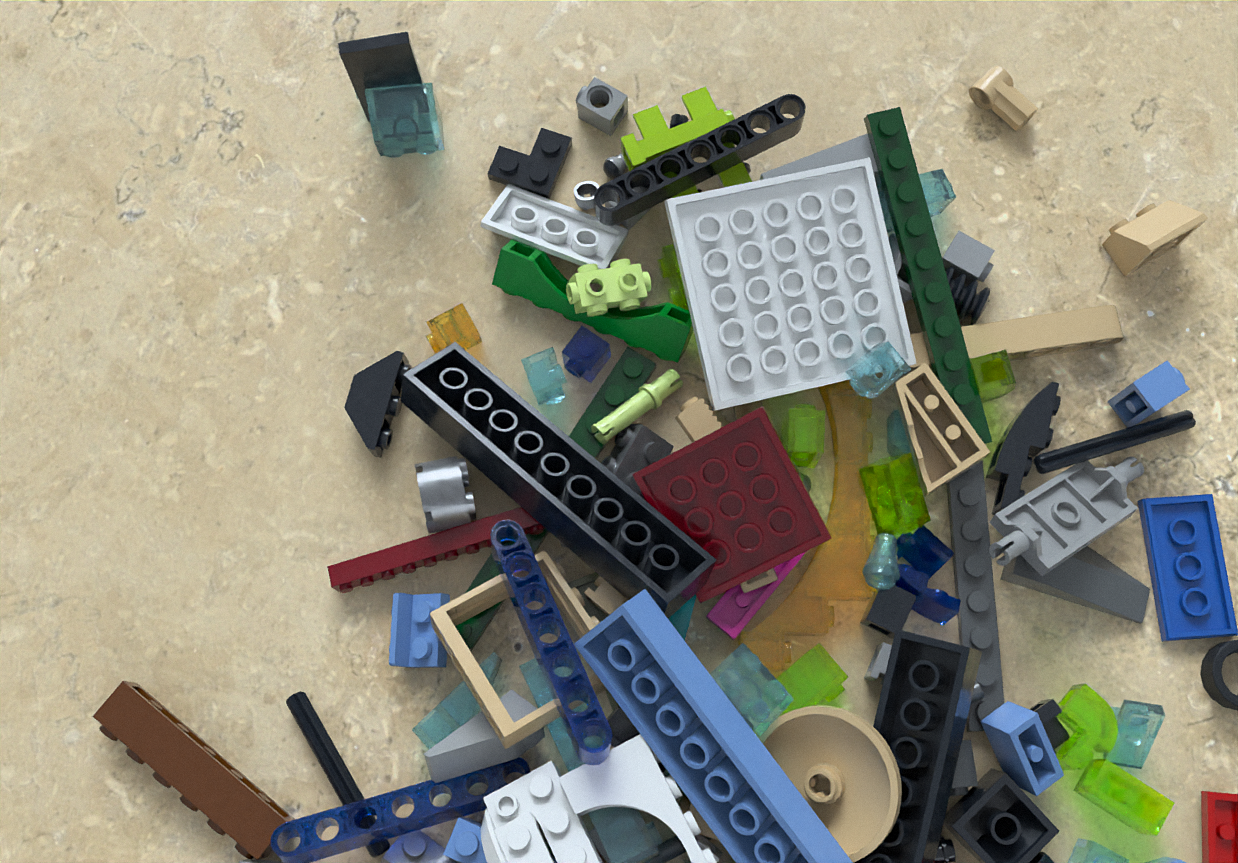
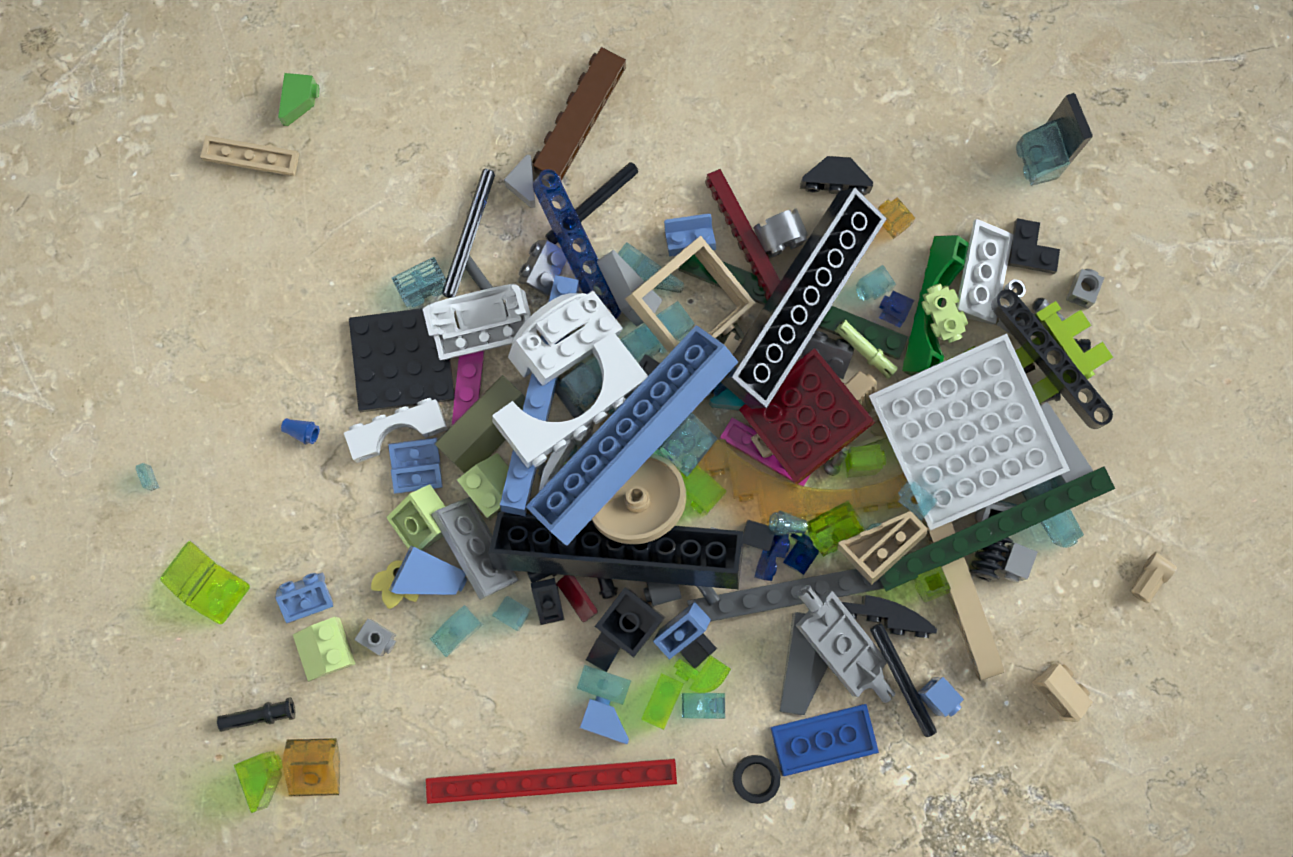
camera: 75 degrees right, 5 degrees up
(554, 654) = (687, 314): clear blue beam -> none

